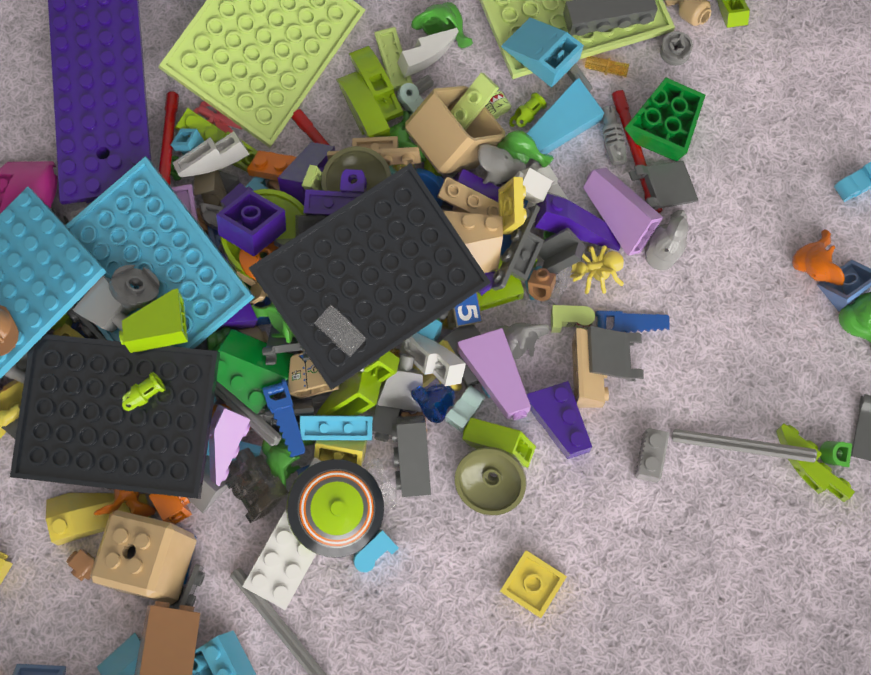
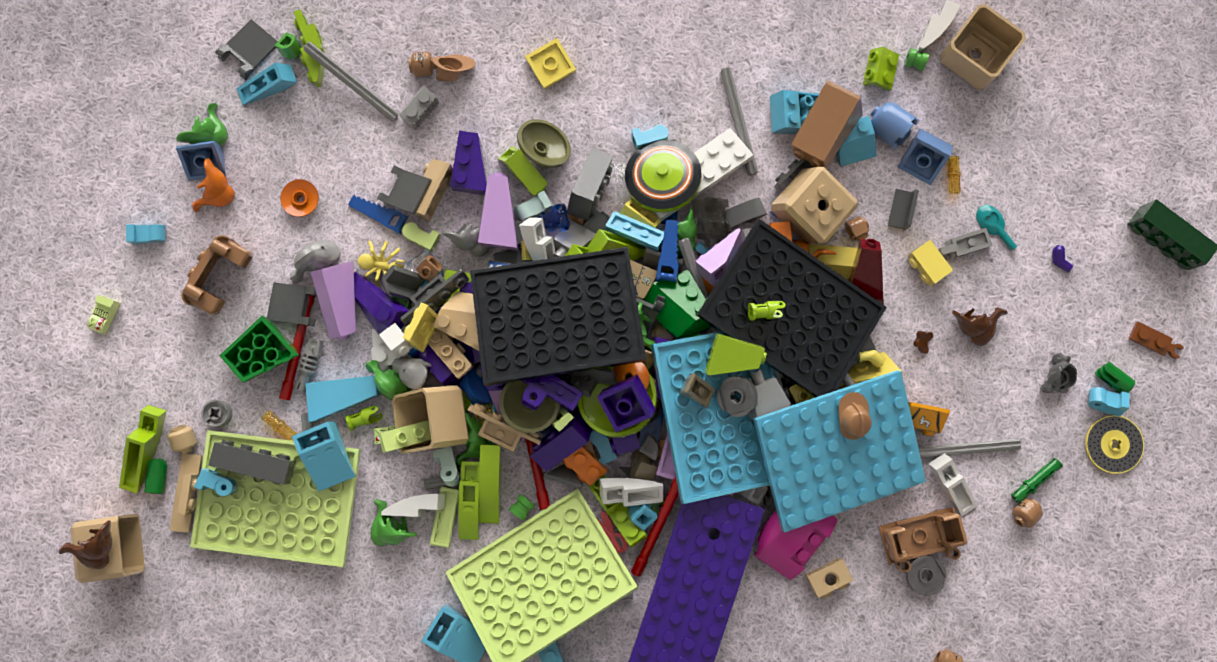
camera: 155 degrees left, 10 degrees up
(38, 615) = (903, 209): none -> dark grey panel
(48, 507) = (868, 269): none -> dark red slope
(182, 268) = (697, 389): none -> dark tan slope
(222, 519) = (745, 212): none -> dark grey slope
(289, 146) = (564, 475): none -> dark grey slope
(319, 102) = (521, 507): none -> bright green wheel
(340, 330) = (601, 281): clear slope -> none
(643, 523) = (451, 66): none -> medium nougat piece
(677, 507) = (421, 64): none -> medium nougat head
(729, 286) = (293, 191): none -> orange dish
(761, 145) = (193, 293): none -> medium nougat container
(833, 400) = (268, 82): none -> medium azure slope
(848, 87) = (103, 314): none -> yellowish green leg

